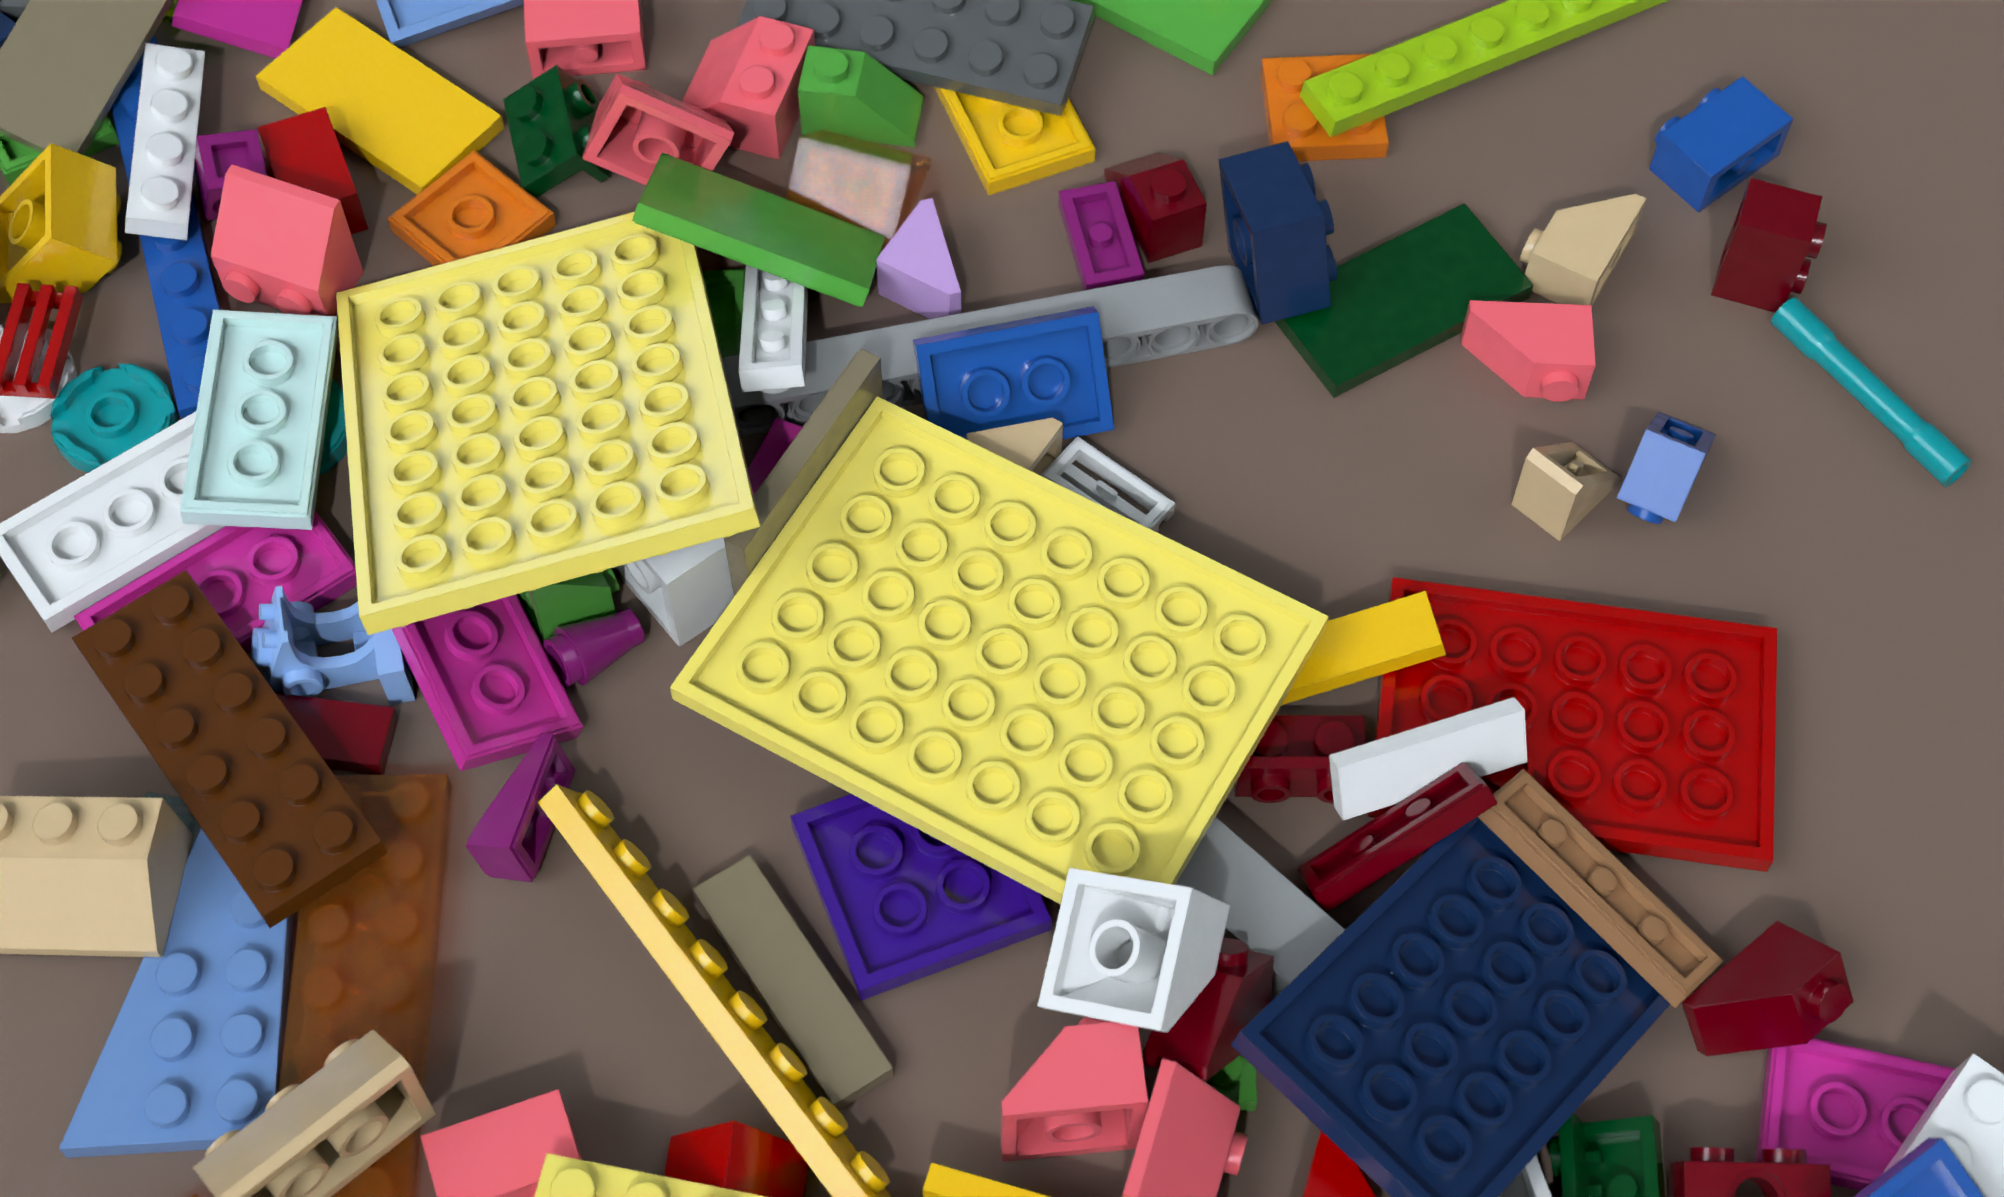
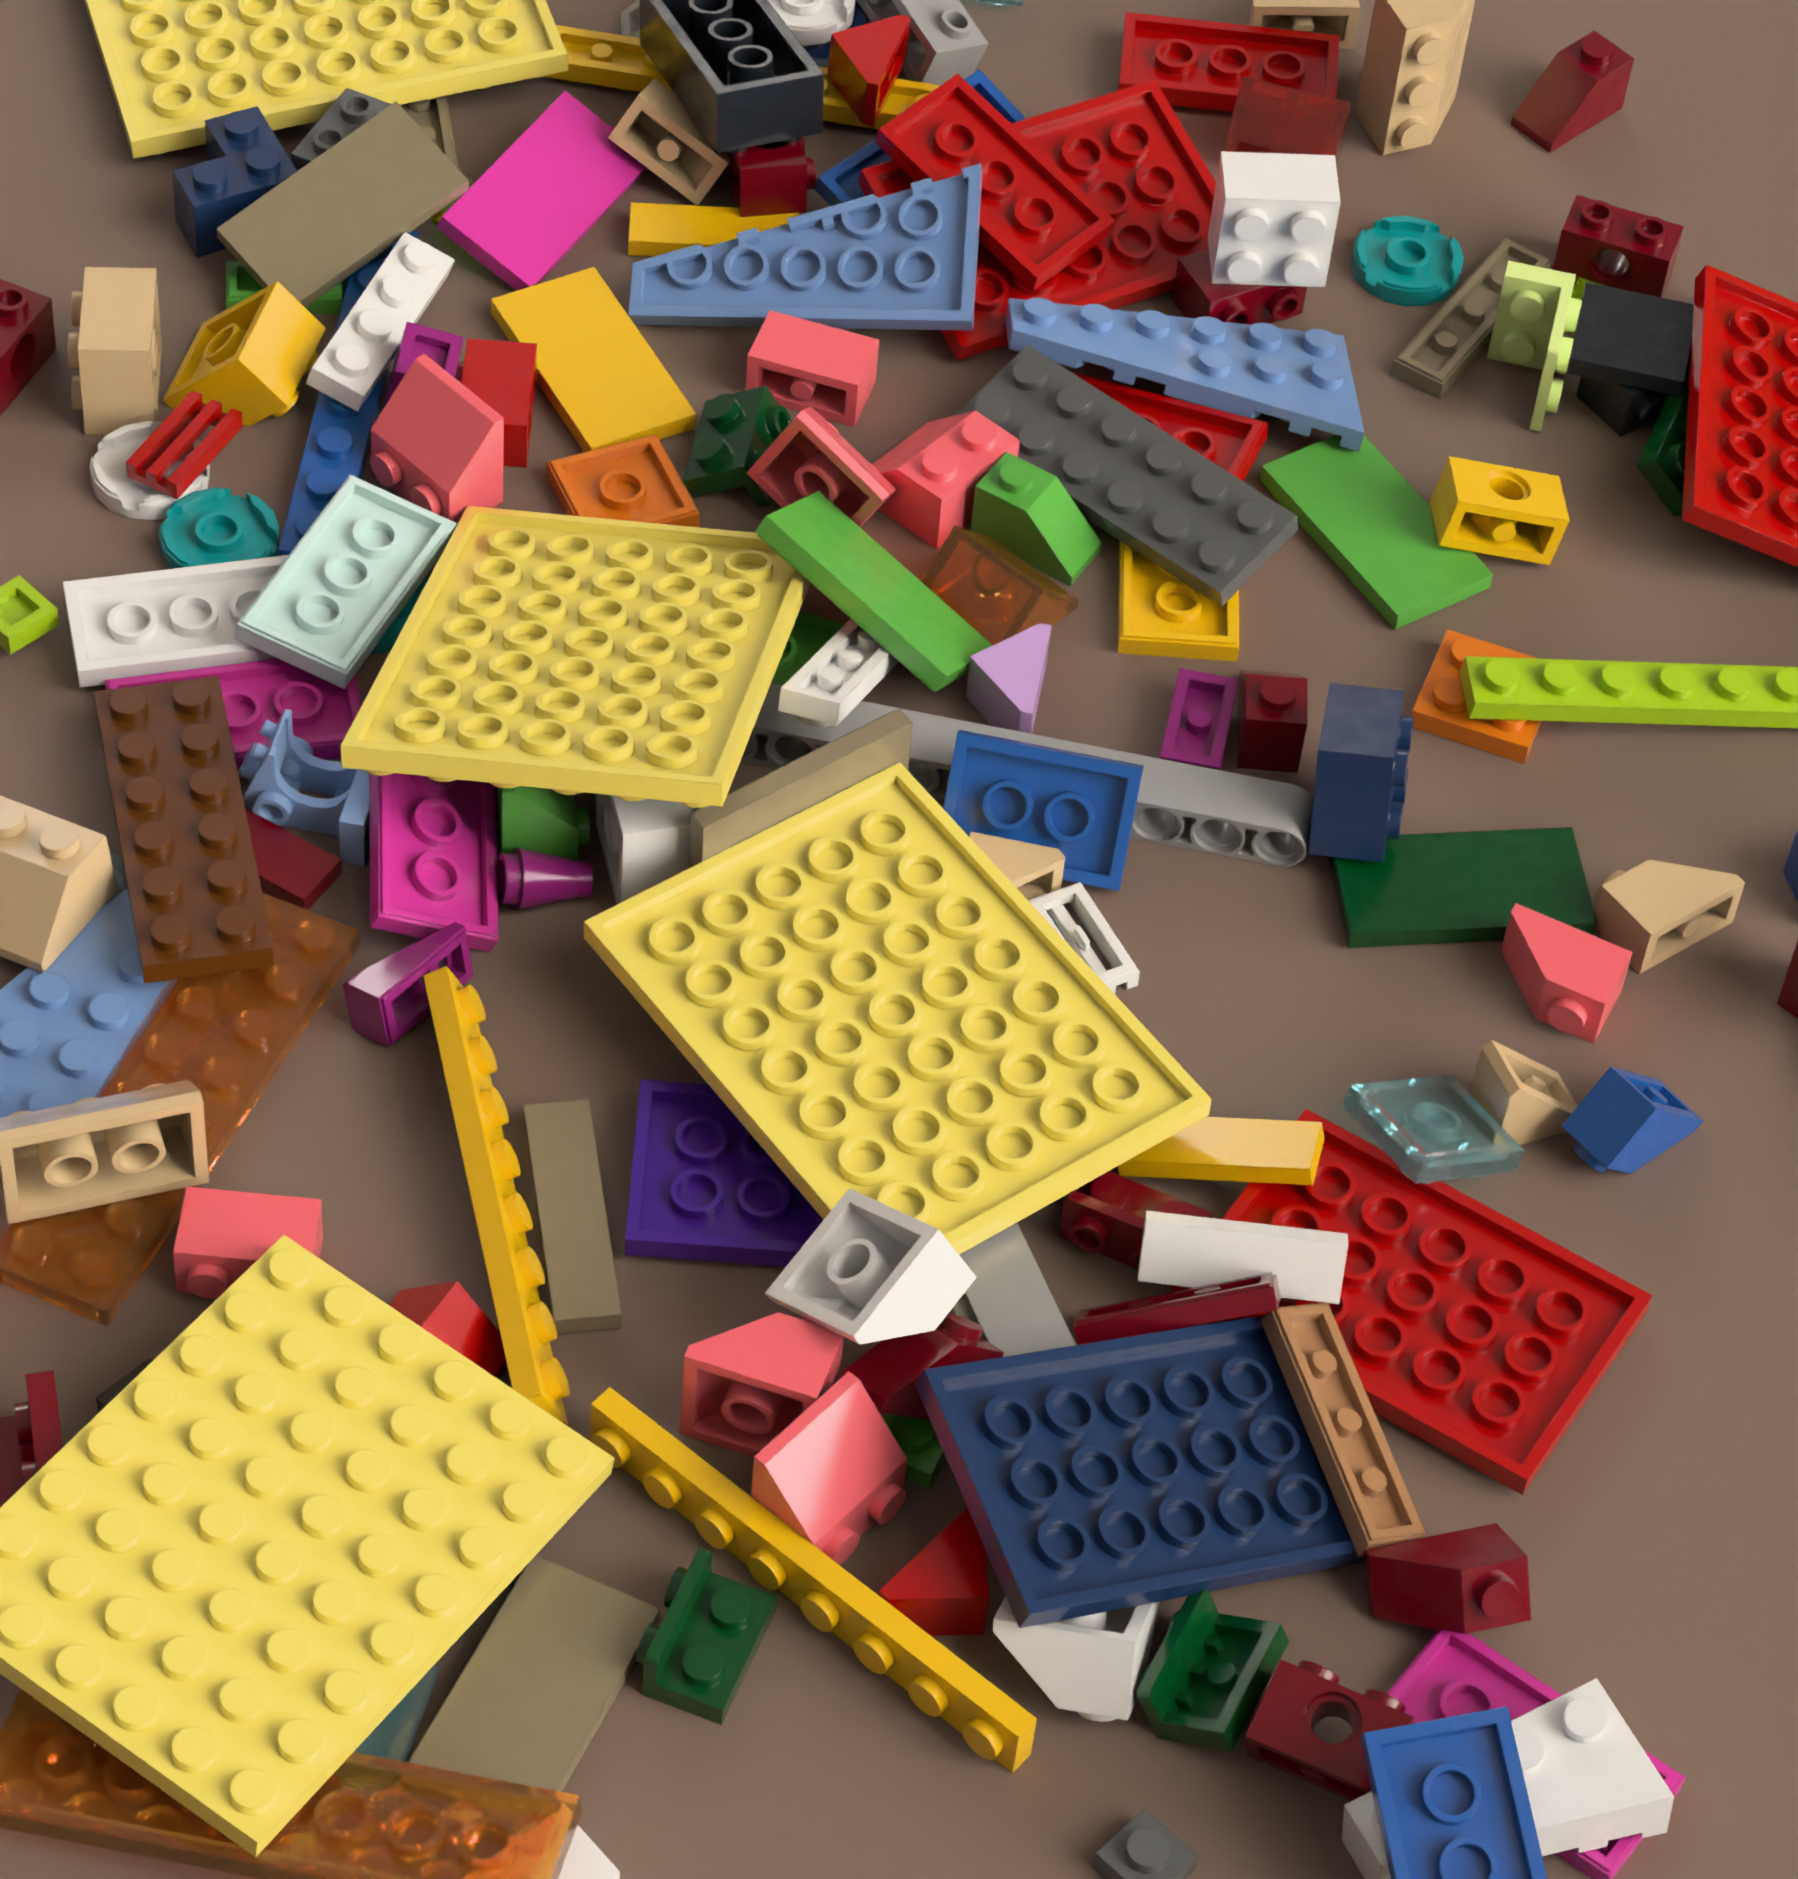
camera: 20 degrees right, 10 degrees down
(1512, 550) = (1432, 1128): none -> clear light blue plate

